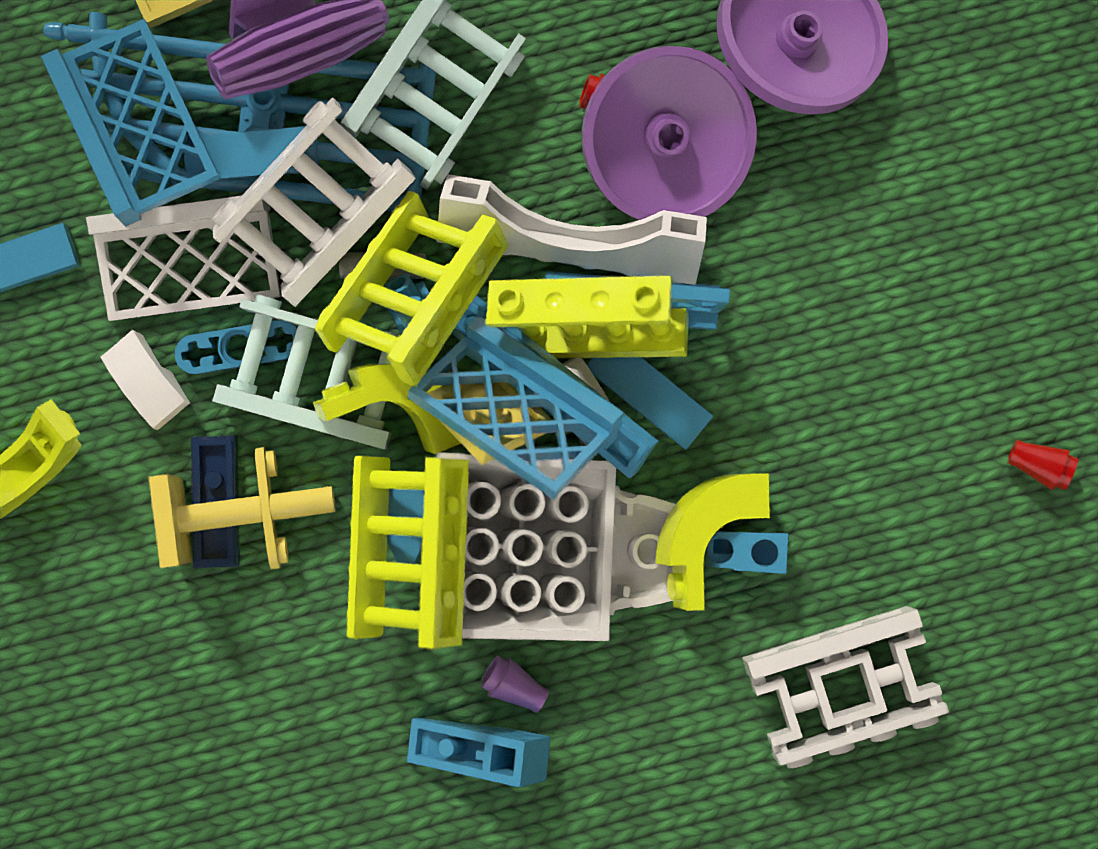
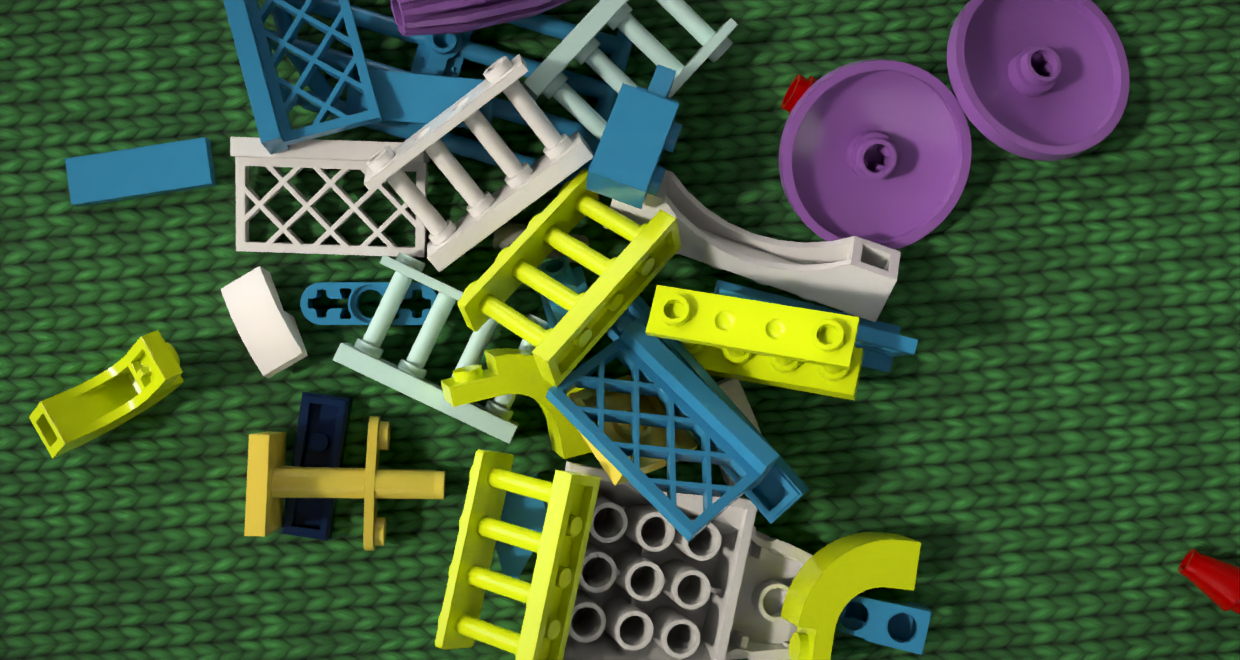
camera: 10 degrees right, 0 degrees up
(449, 156) = (634, 141): none -> dark azure hinge
(652, 397) = (808, 435): dark azure tile -> none

